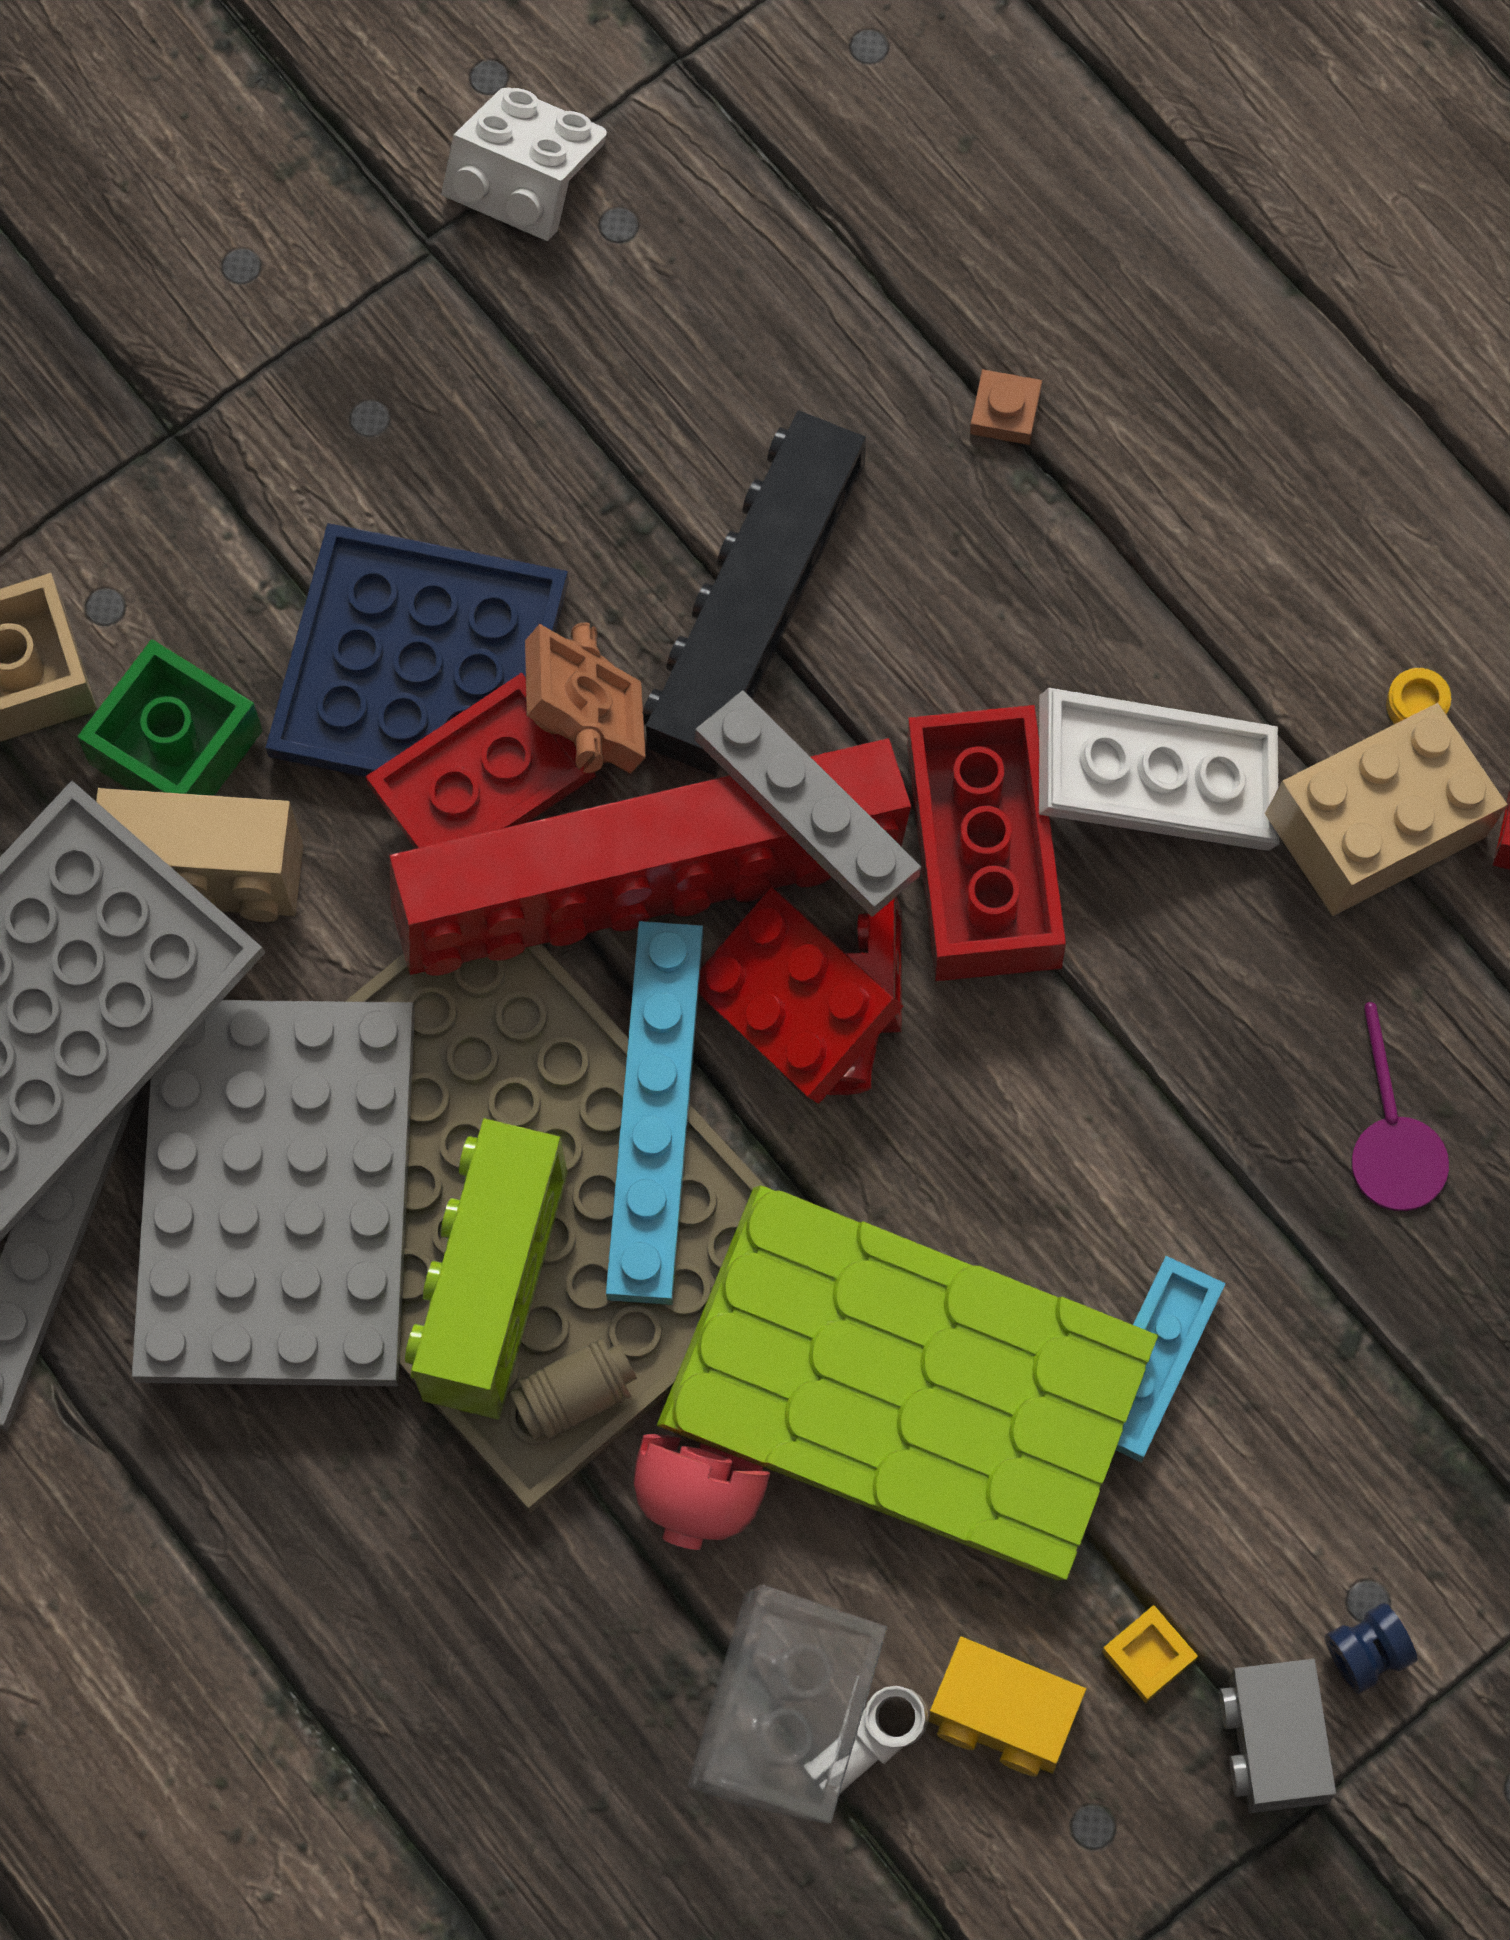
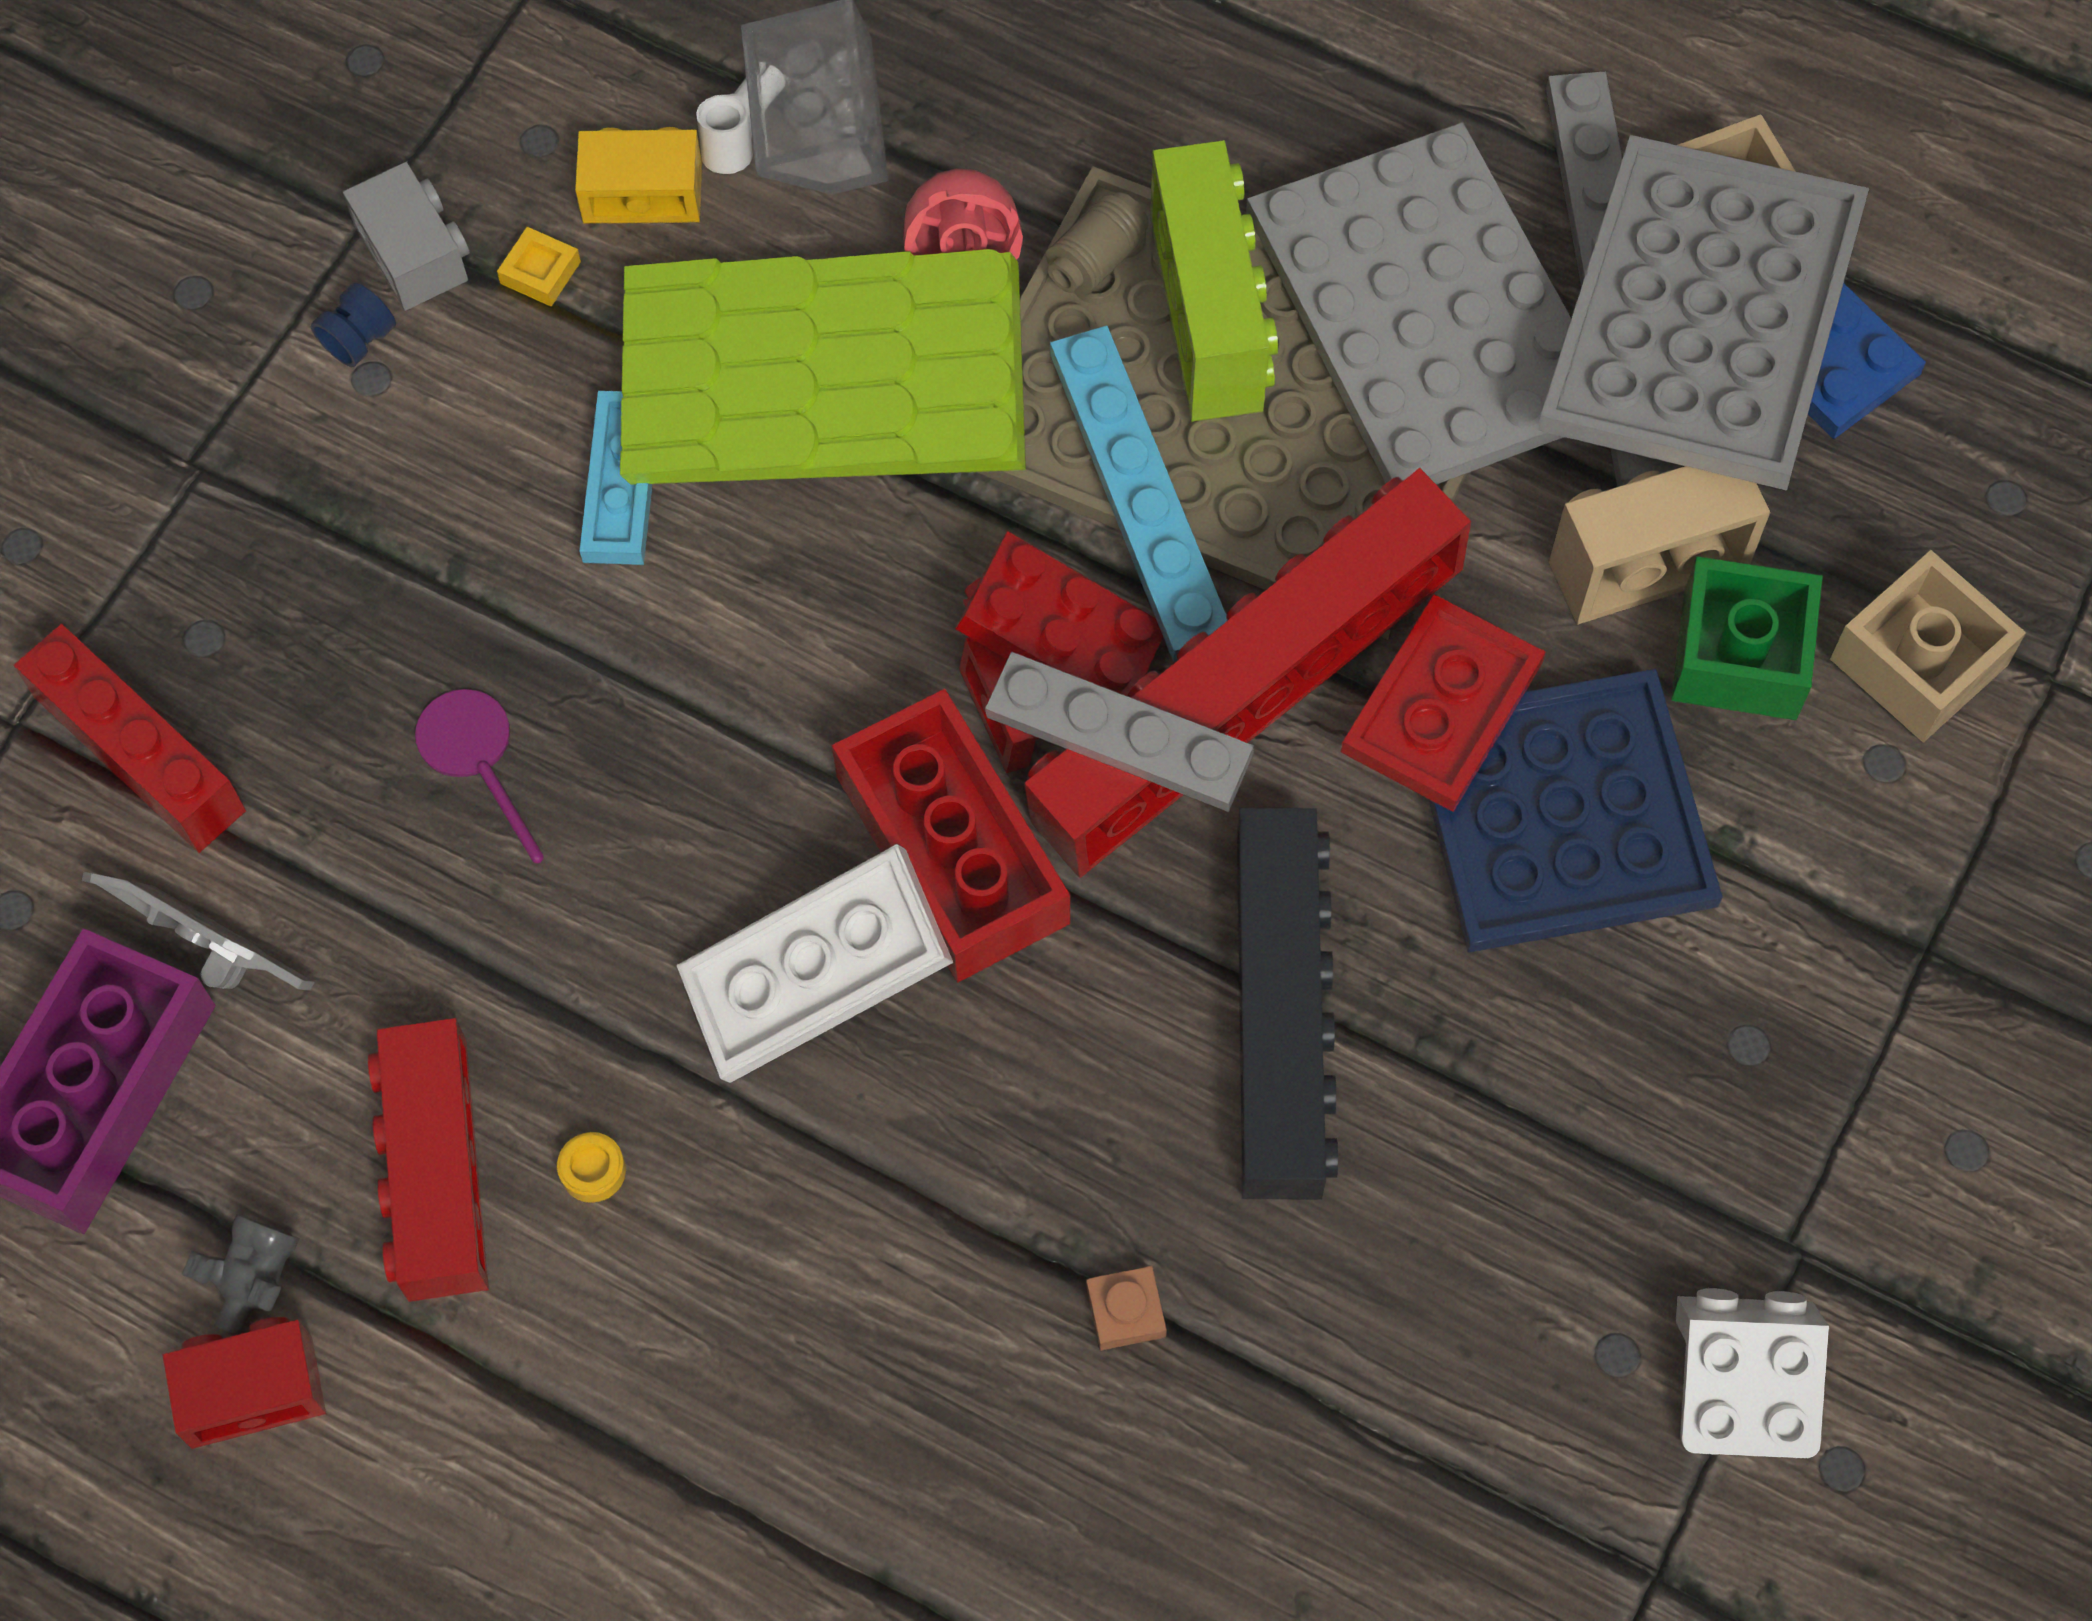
camera: 155 degrees right, 5 degrees down
(584, 698) = (1385, 801): nougat plate -> none
(1385, 809) = (581, 1014): tan brick -> none

